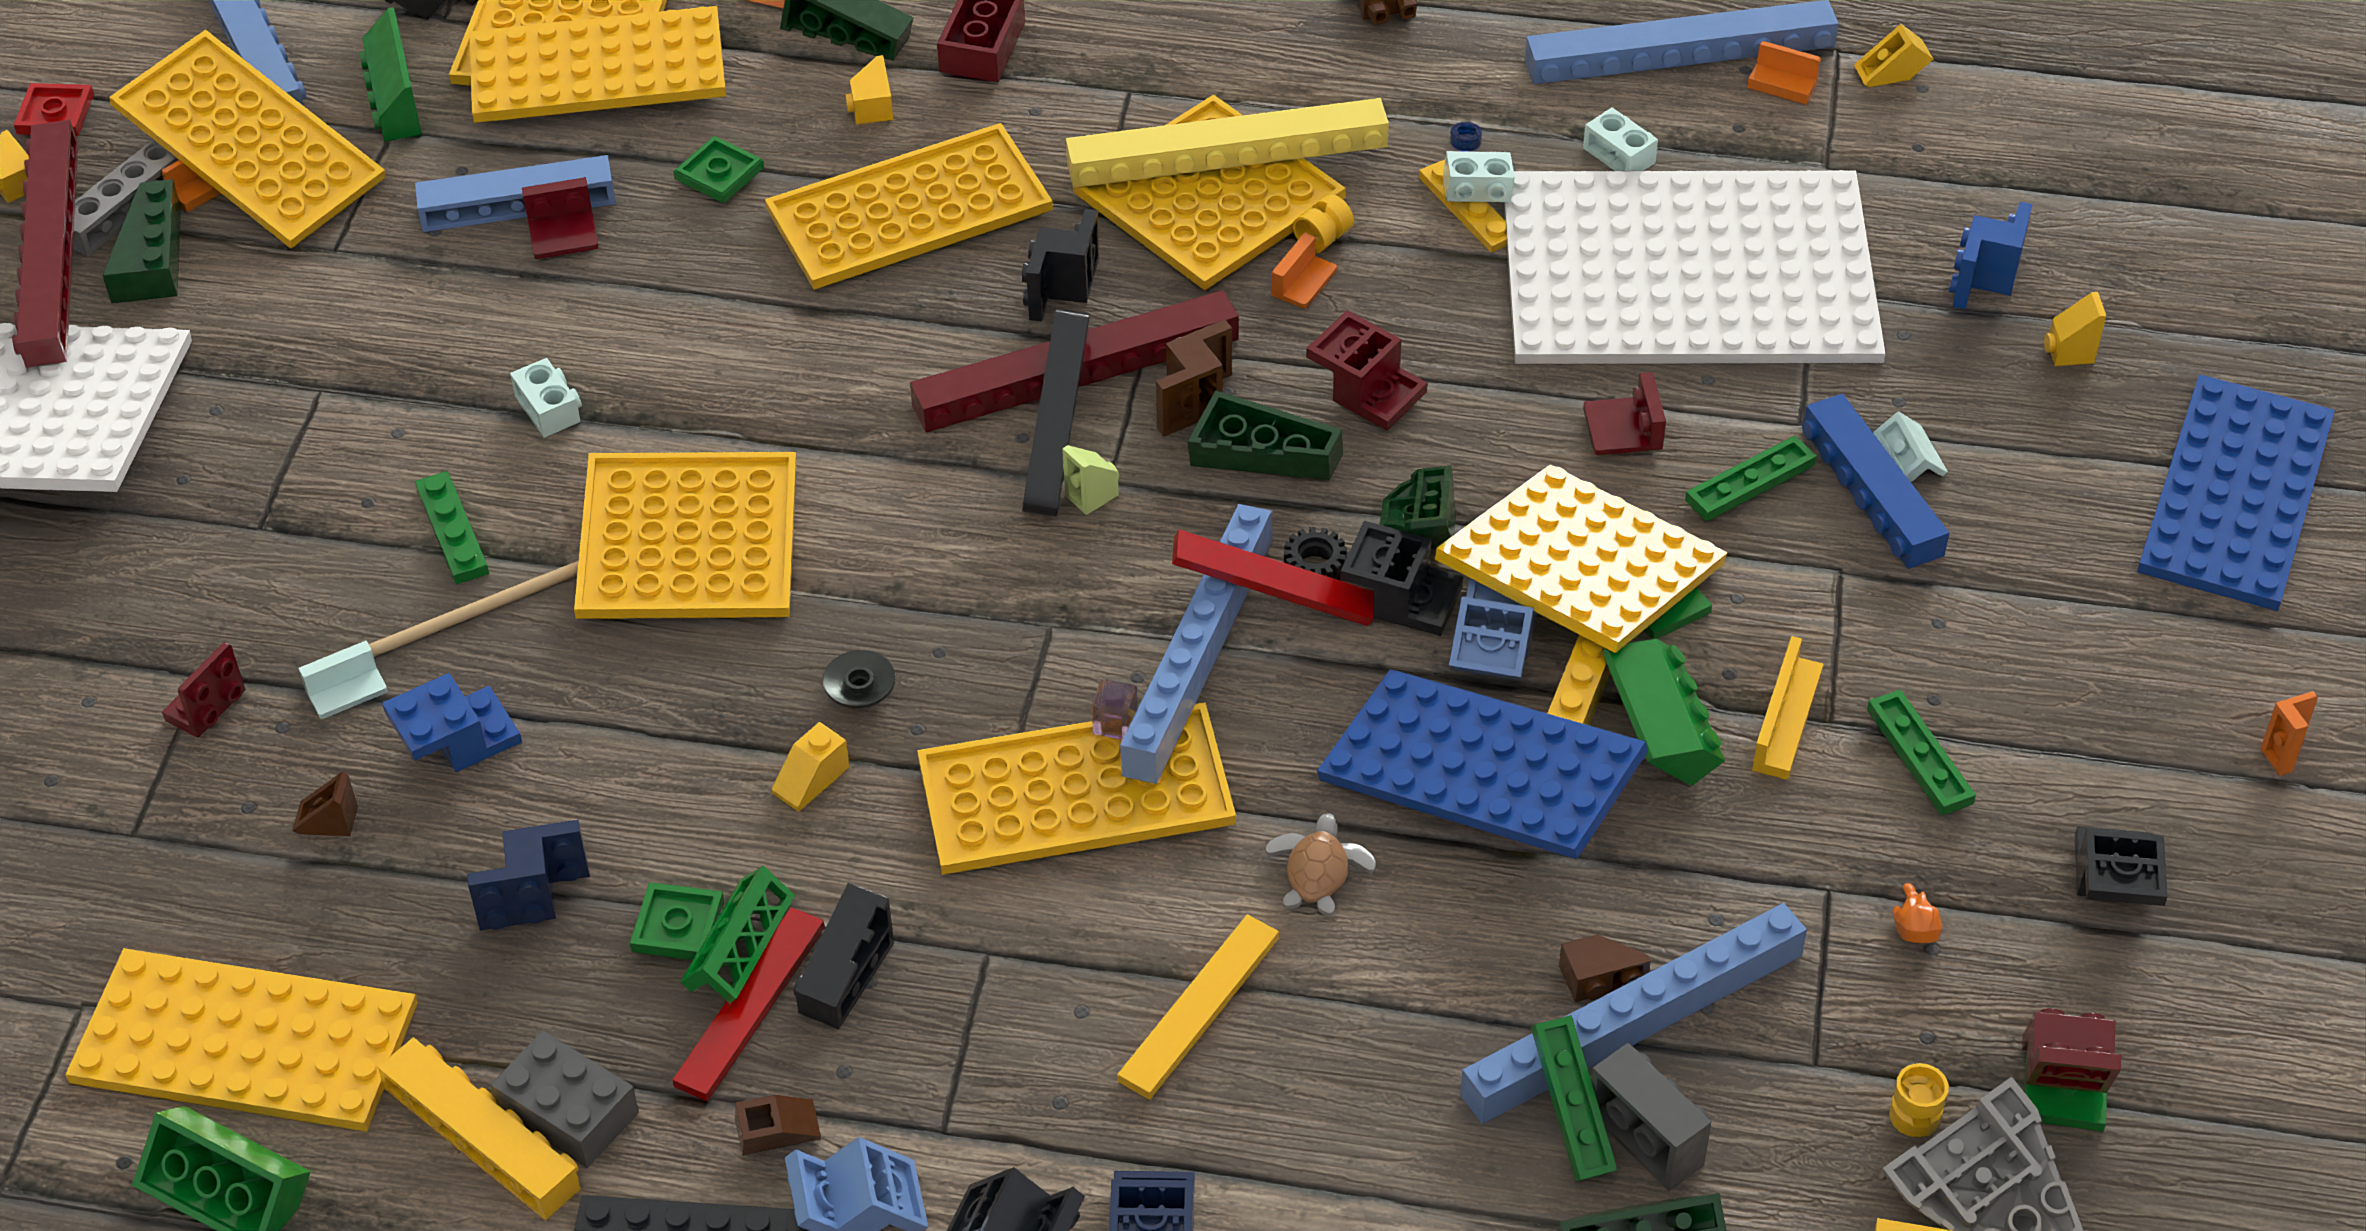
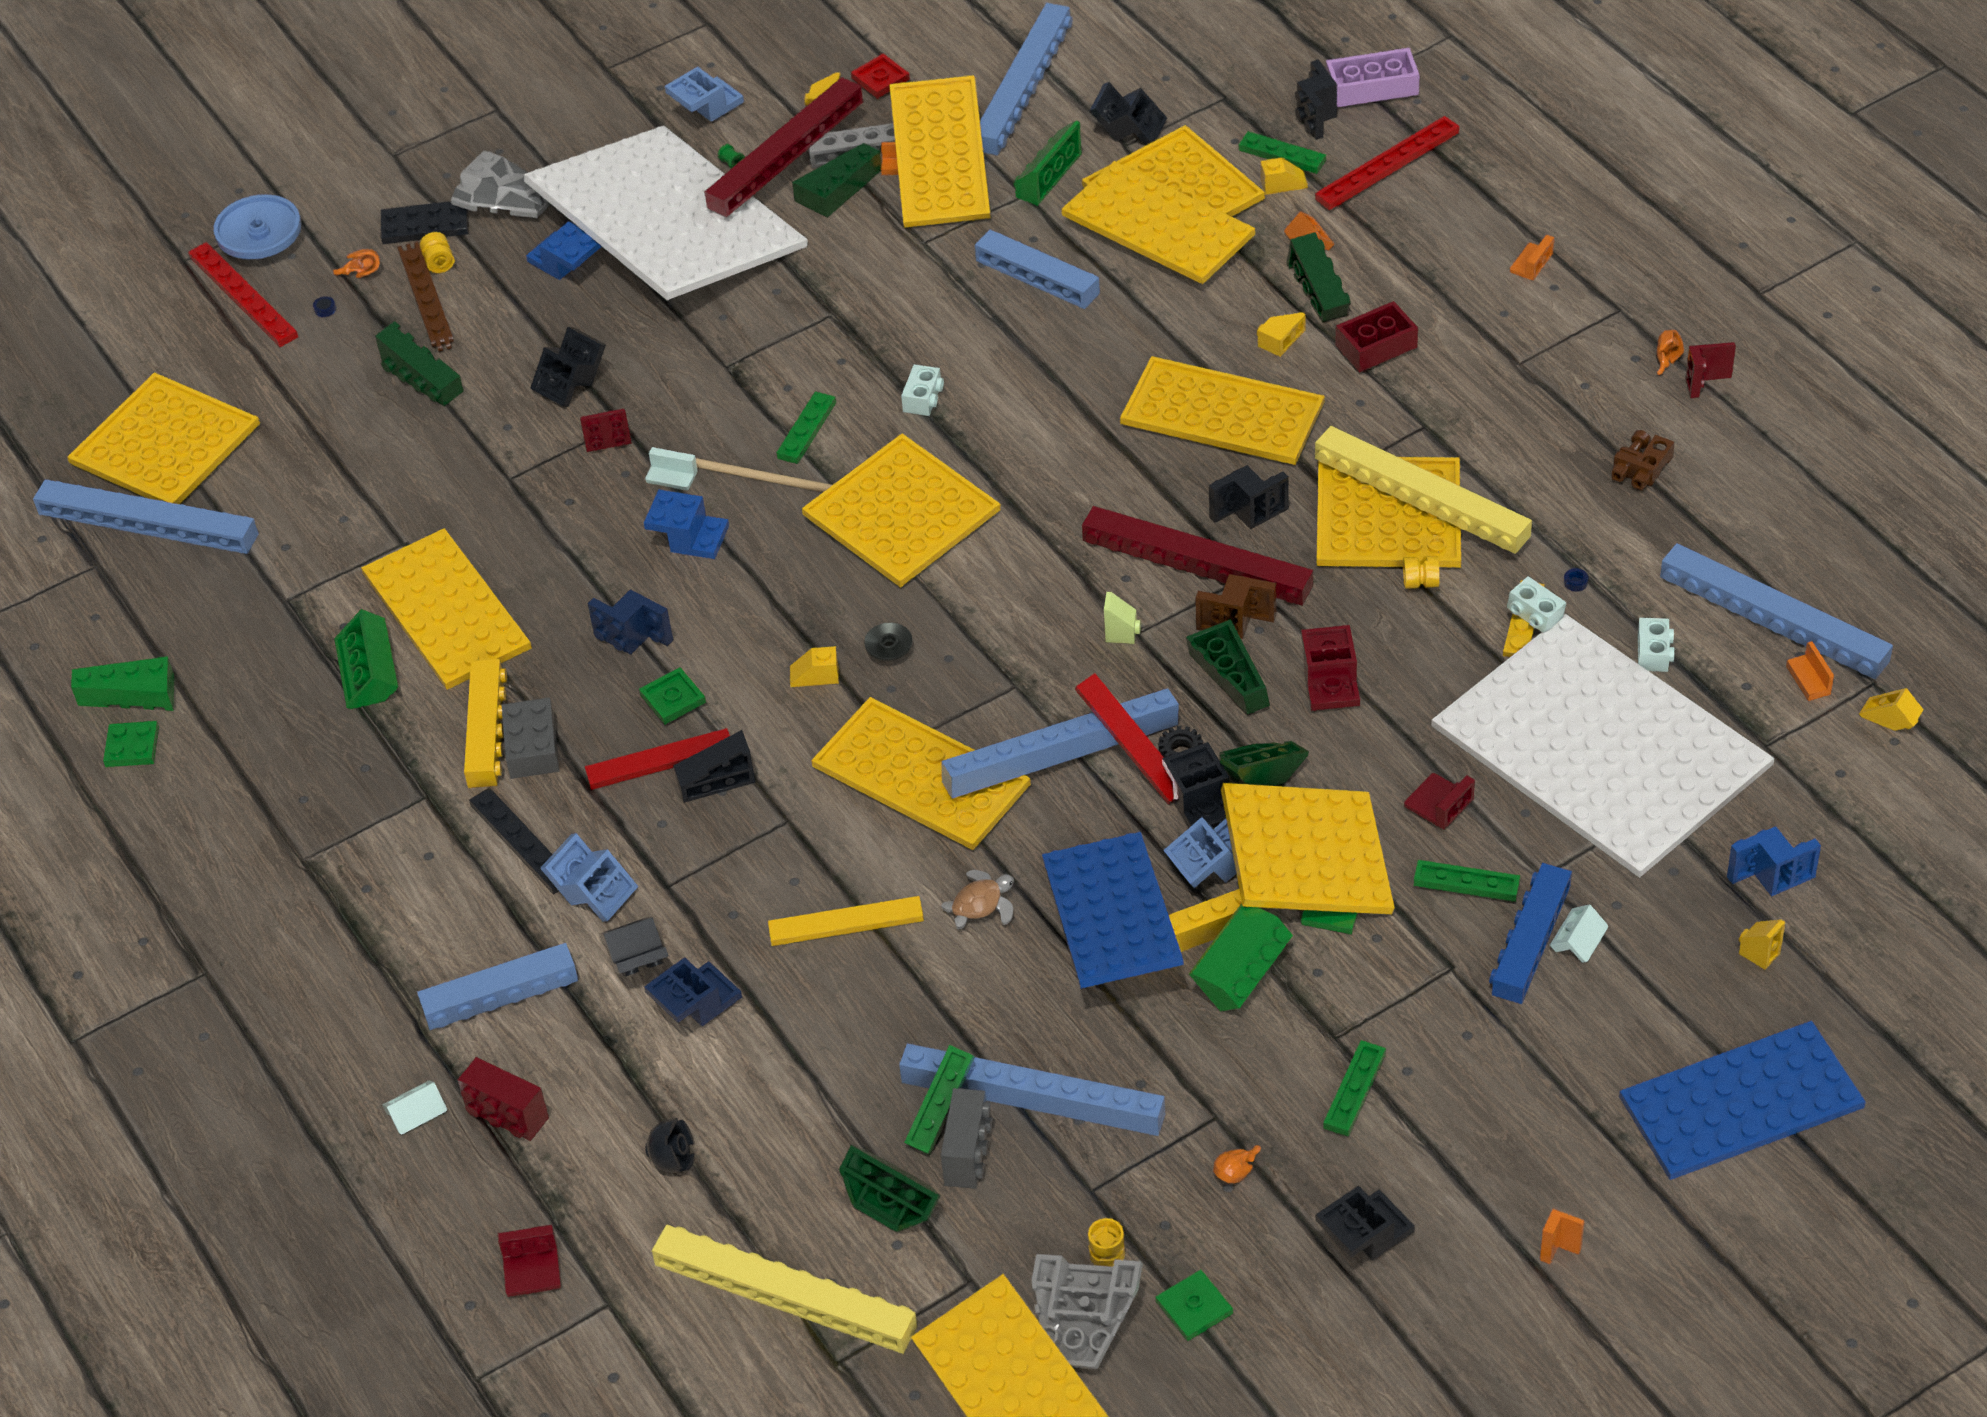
camera: 50 degrees right, 0 degrees up
(62, 653) = (568, 366): none -> black bracket
(328, 809) = (595, 529): reddish brown slope -> none
(560, 218) = (1042, 298): dark red bracket -> none
(718, 169) = (1152, 324): green plate -> none
(745, 900) = (679, 715): green fence -> none
(775, 1123) = (597, 819): reddish brown slope -> none
(1055, 412) = (1145, 570): black beam -> none
(1114, 708) = (972, 739): brick -> none
(1301, 273) = (1377, 592): orange panel -> none
(1599, 966) = (1043, 1053): reddish brown slope -> none
(1787, 713) = (1313, 1013): yellow fence -> none
(2071, 1051) = (1203, 1281): dark red bracket -> none

